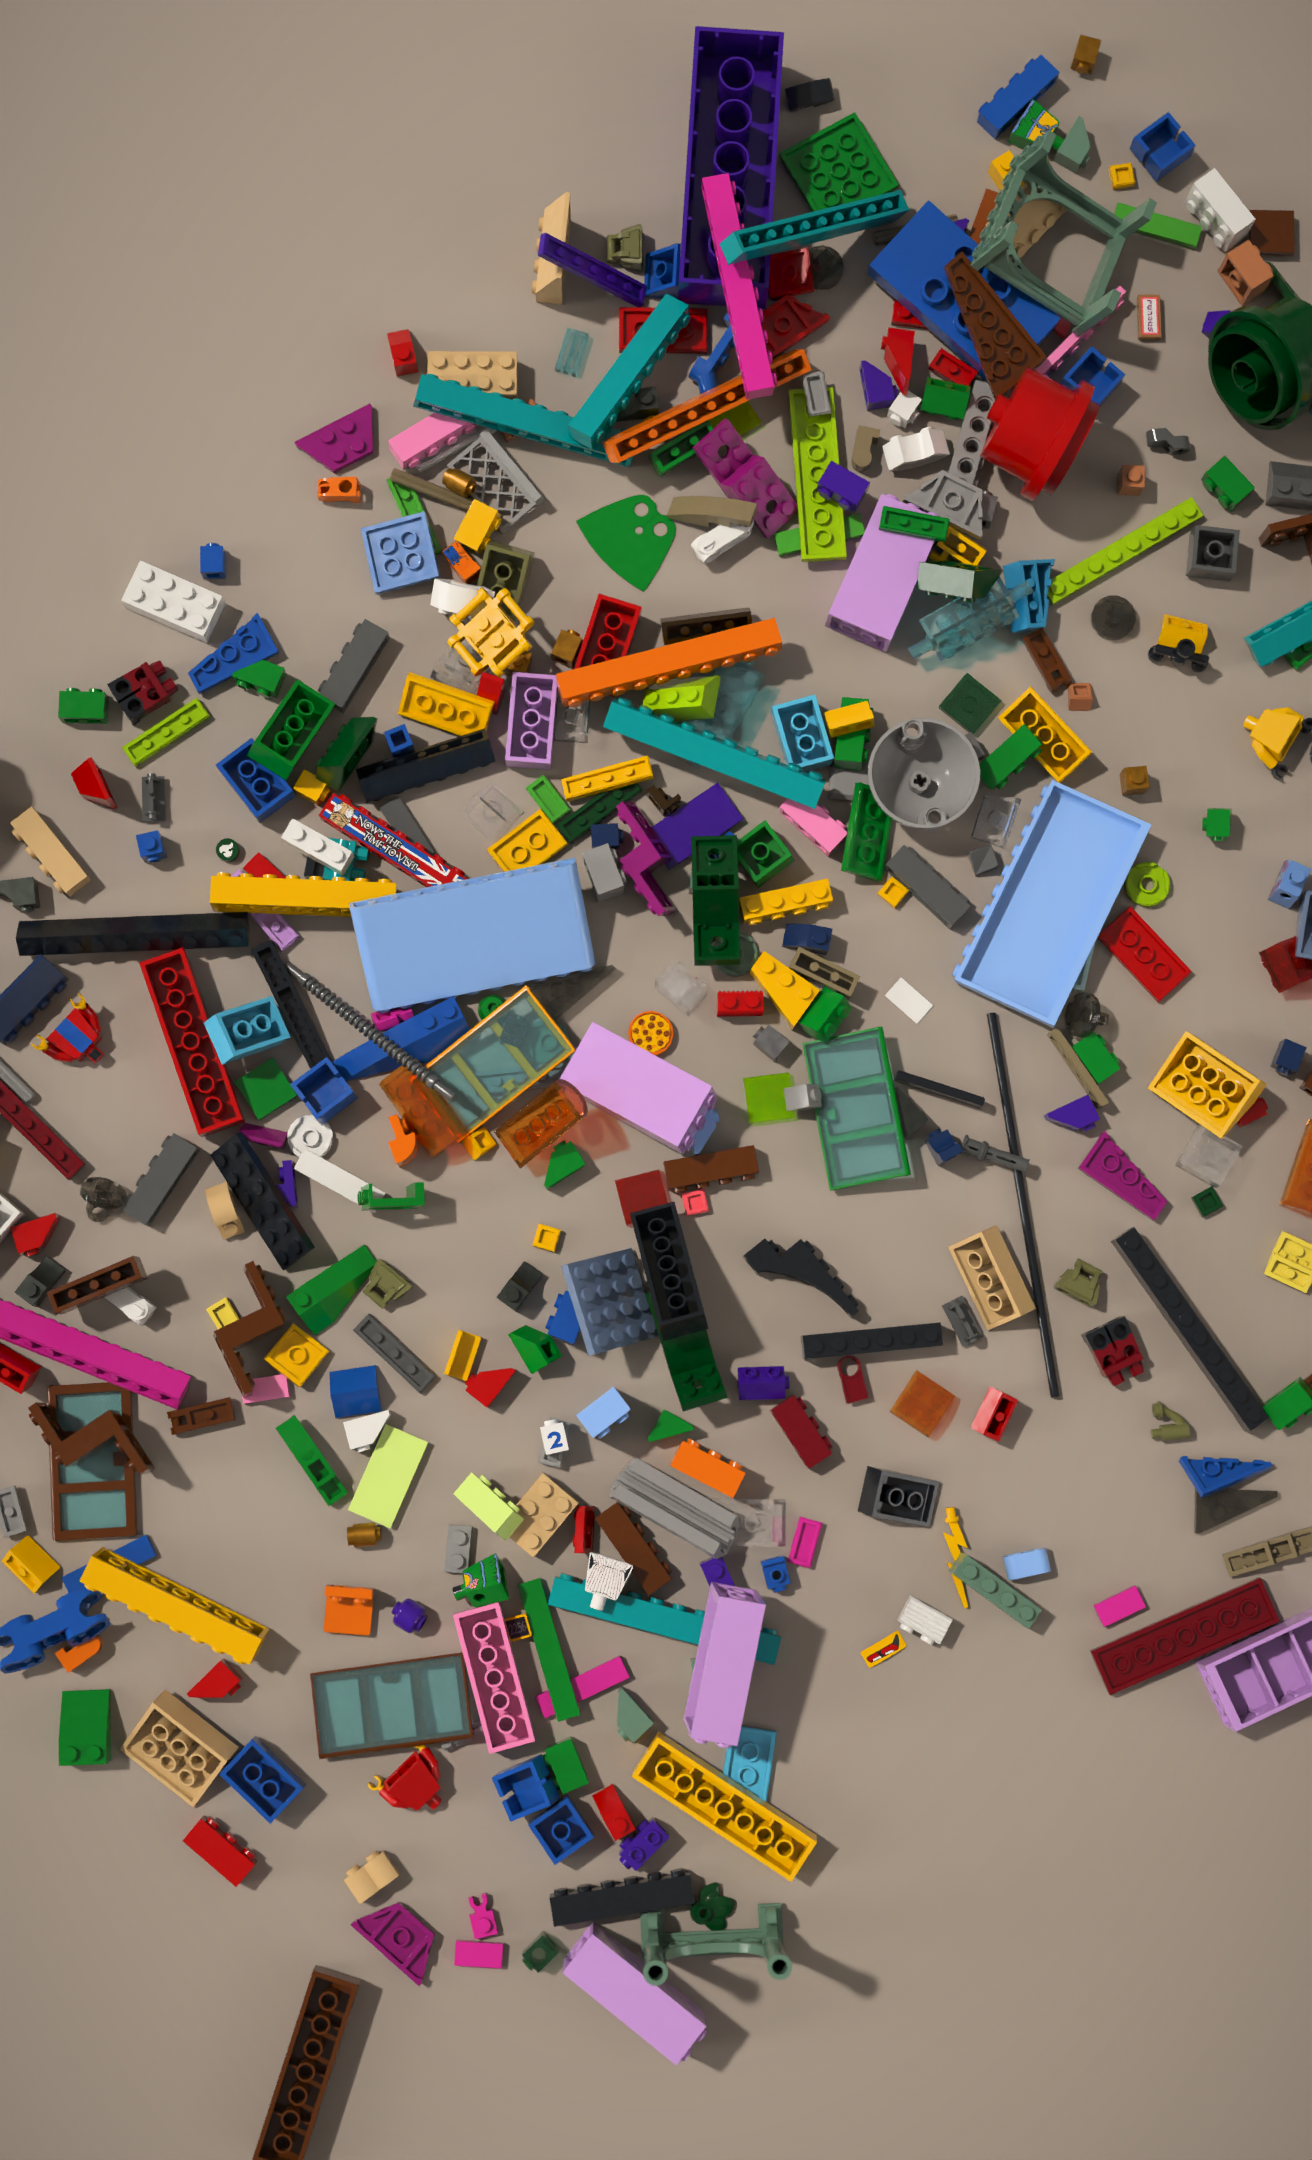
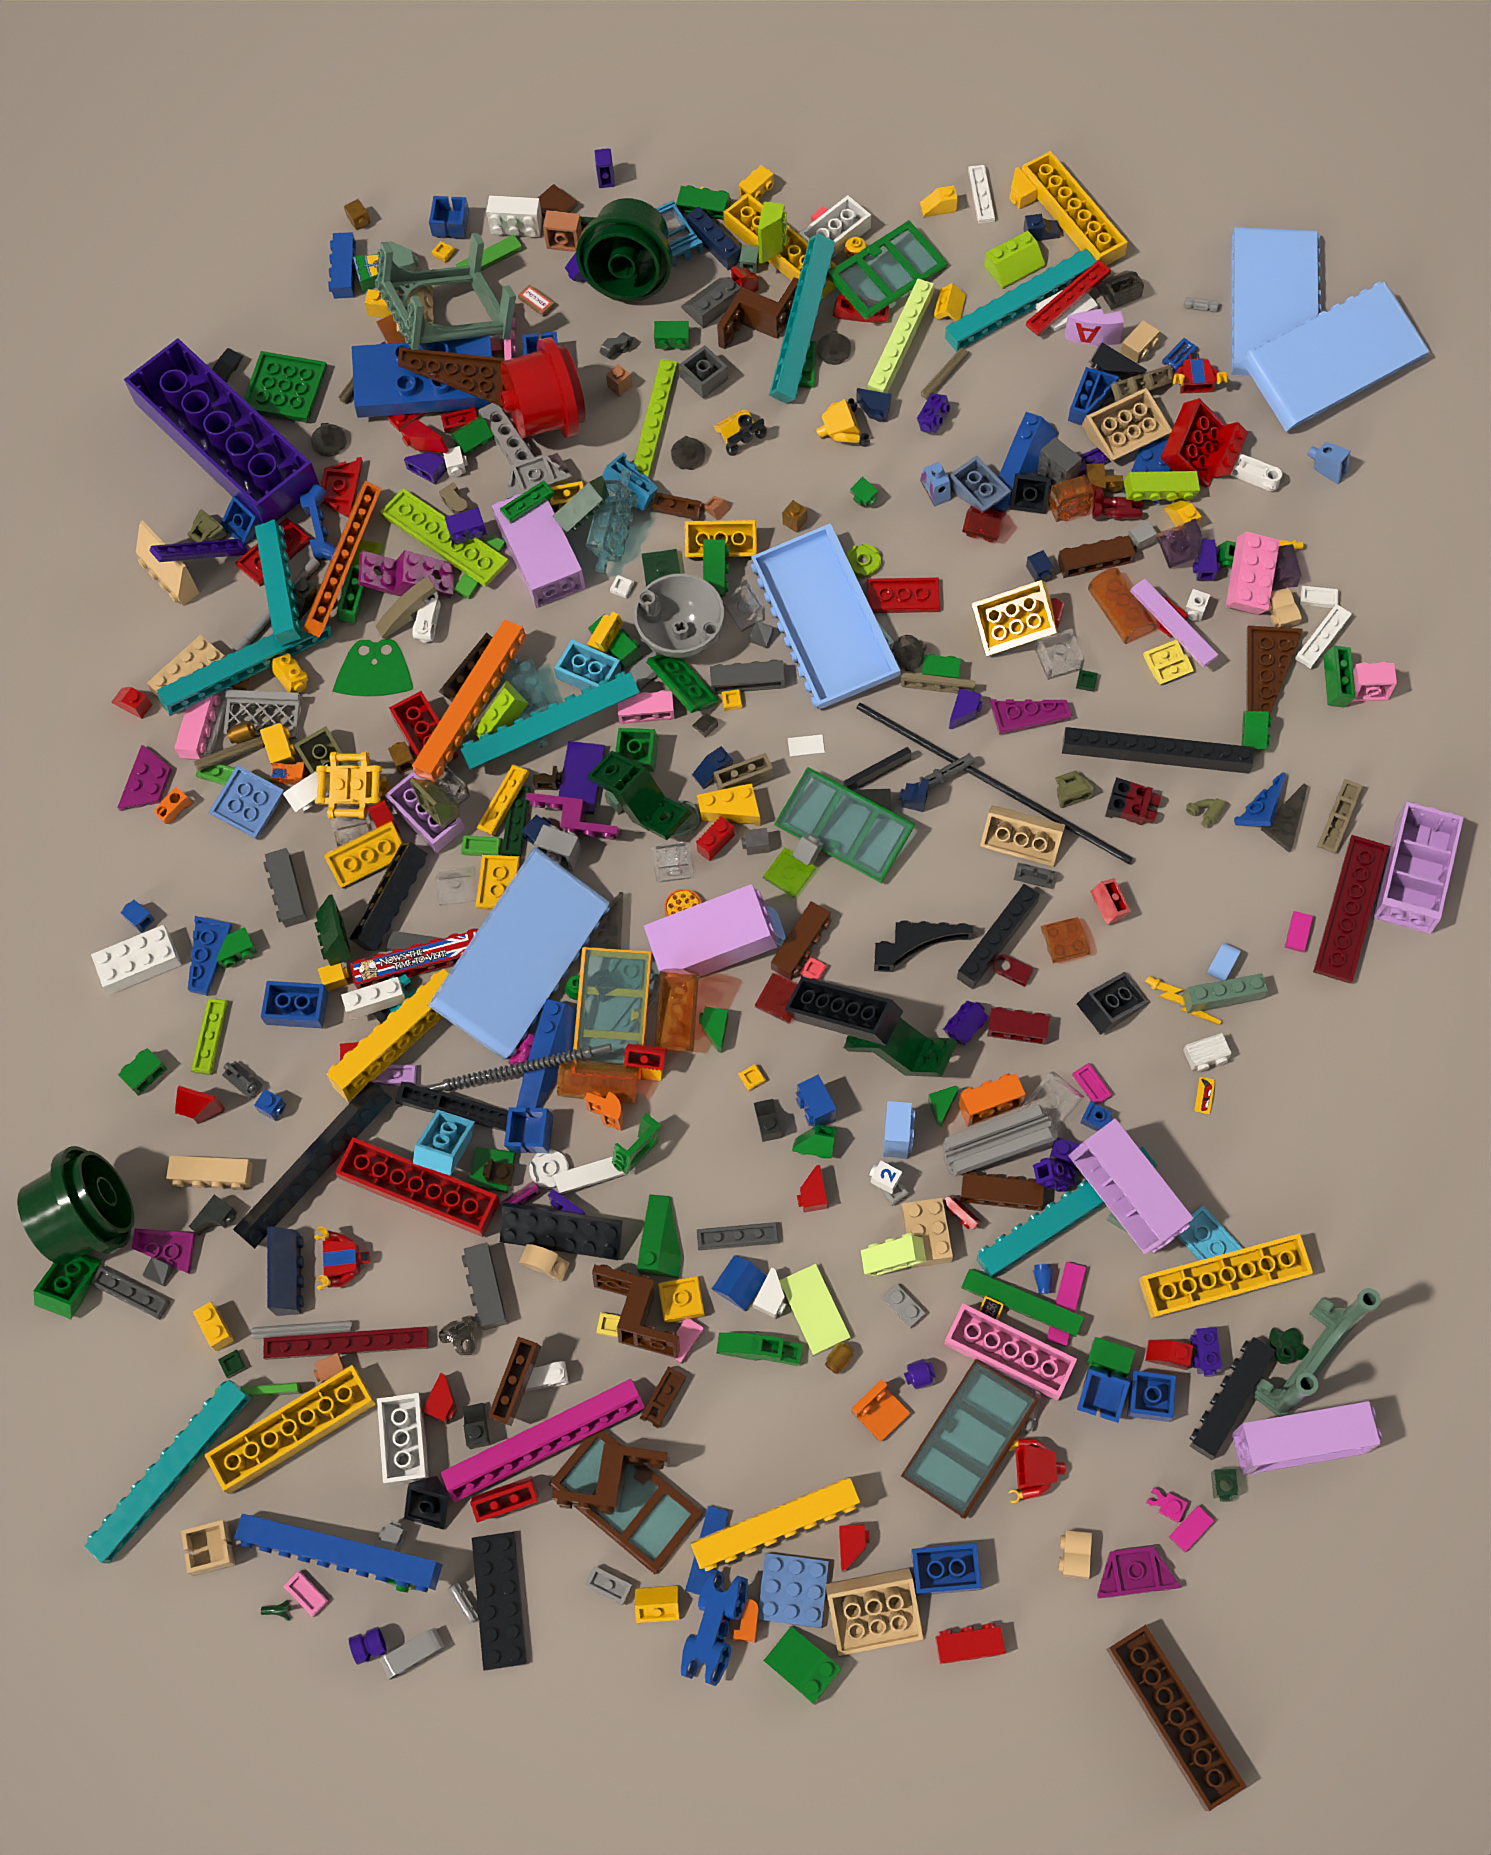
camera: 35 degrees left, 15 degrees down
(139, 1666) = (793, 1590): none -> medium blue plate
(141, 691) = (169, 1027): dark red hips -> none
(227, 850) = (319, 1062): dark green tile -> none
(265, 1099) = (498, 1173): none -> dark brown bracket
(291, 729) = (286, 952): green brick -> none
(388, 1281) = (688, 1197): olive piece -> none
(399, 740) = (357, 898): blue brick -> none
(462, 1355) = (779, 1193): yellow panel -> none
(476, 1132) = (645, 1056): none -> red brick
(483, 1583) = (941, 1304): green torso -> none
(542, 728) = (435, 802): none -> olive slope
(553, 395) = (306, 572): none -> light grey piece
(554, 469) = (289, 673): none -> yellow brick
(566, 369) = (238, 621): clear light blue tile -> none
(588, 1647) = (1043, 1277): none -> blue cone
(605, 1578) = (1007, 1220): white torso -> none
(609, 1301) = (829, 1065): sand blue plate -> none
(631, 1717) = (1113, 1287): sand green slope -> none
(685, 1582) = (1054, 1174): none -> dark purple brick
(739, 290) = (293, 475): dark pink brick -> none
(785, 901) = (679, 759): yellow brick -> none
(790, 274) = (318, 454): red tile -> none
(813, 227) = (302, 411): teal brick -> none
(816, 393) = (397, 498): light grey tile -> none
(825, 1015) = (769, 794): green brick -> none
(846, 891) = (705, 724): none -> clear smoke slope
(915, 449) = (484, 475): white brick -> none
(917, 685) = (622, 586): none -> white tile

